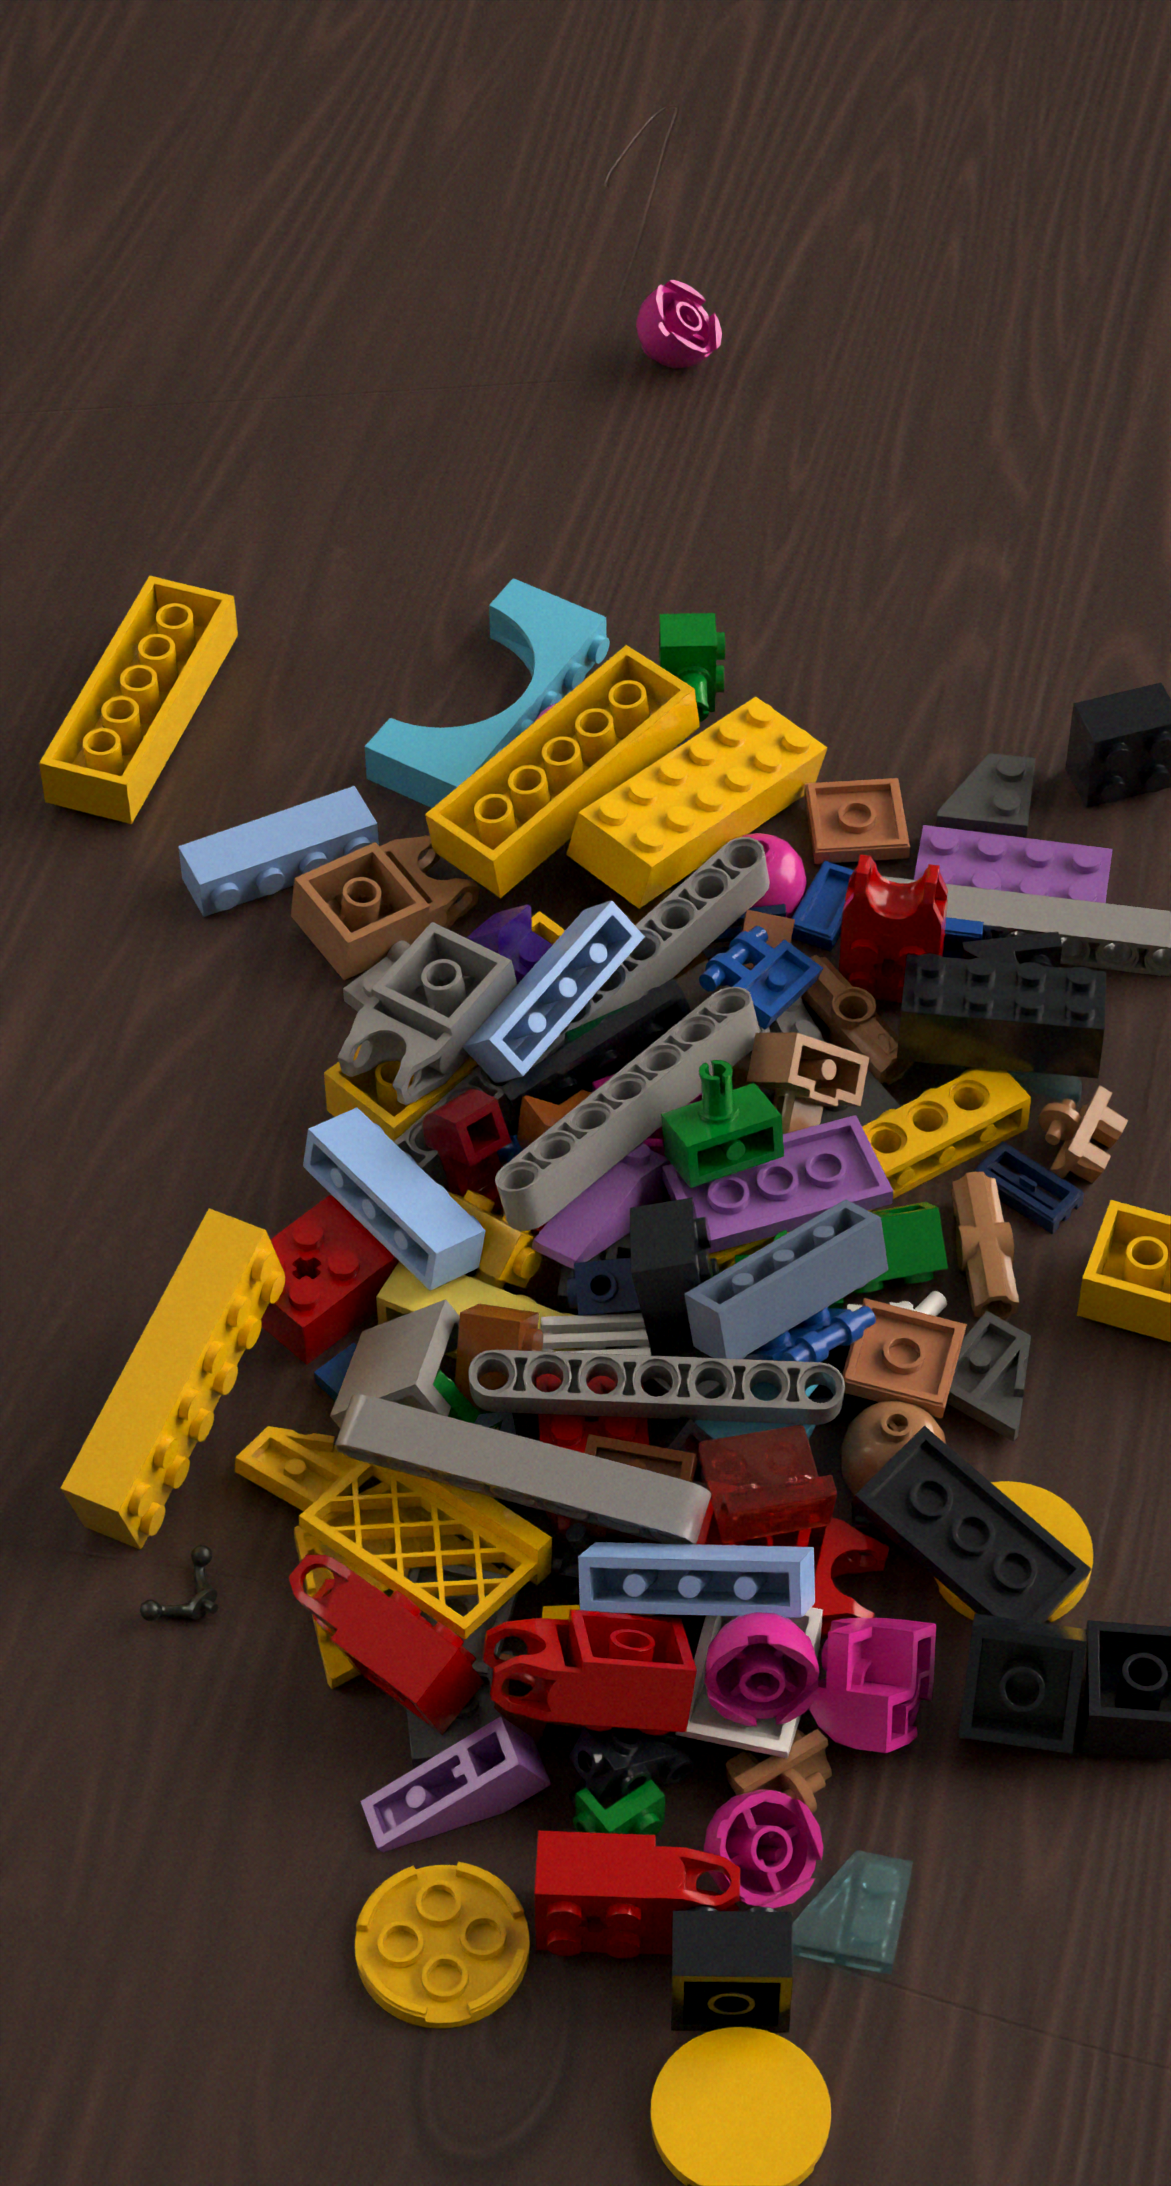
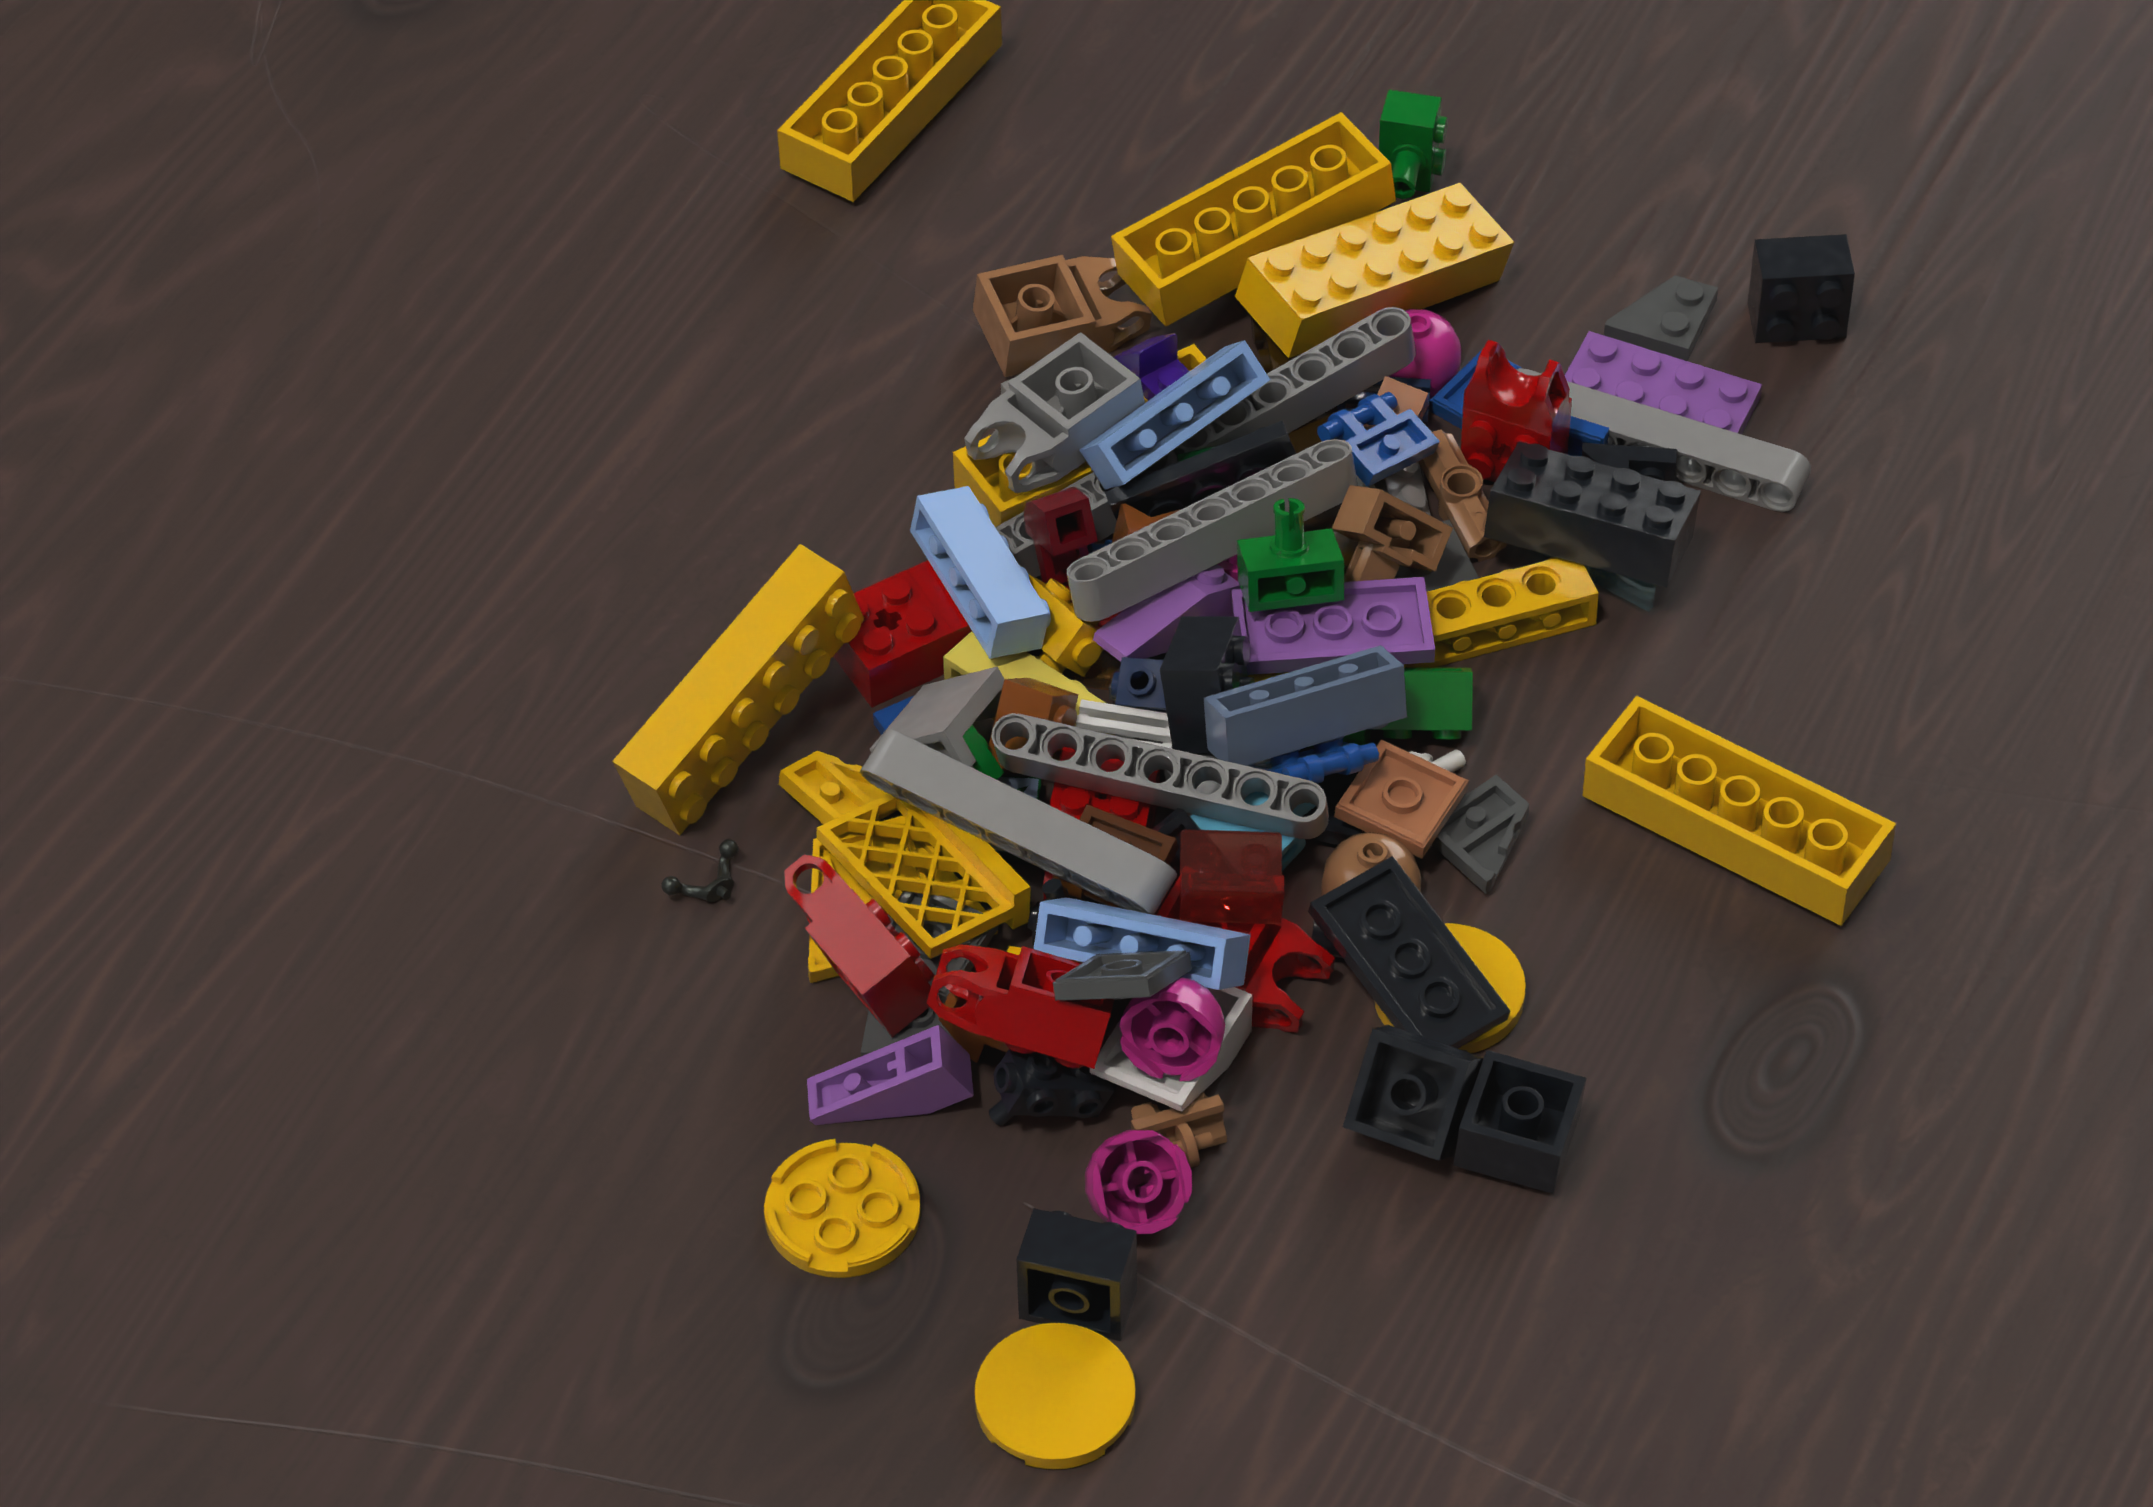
camera: 15 degrees right, 0 degrees up
(274, 850) = (956, 249): light blue brick -> none
(558, 648) = (1283, 85): medium azure arch -> none
(619, 1892) = (988, 1184): red brick -> none
(634, 1814) = (1028, 1139): green bracket -> none
(699, 1625) = (1122, 975): none -> dark grey plate
(856, 820) = (1527, 315): nougat plate -> none
(856, 1914) = (1208, 1257): clear light blue wing -> none
(875, 1681) = (1282, 1065): dark pink brick -> none
(984, 1246) = (1515, 718): medium nougat piece -> none
(1022, 1191) = (1569, 679): dark blue tile -> none
(1076, 1129) = (1631, 653): medium nougat hips -> none

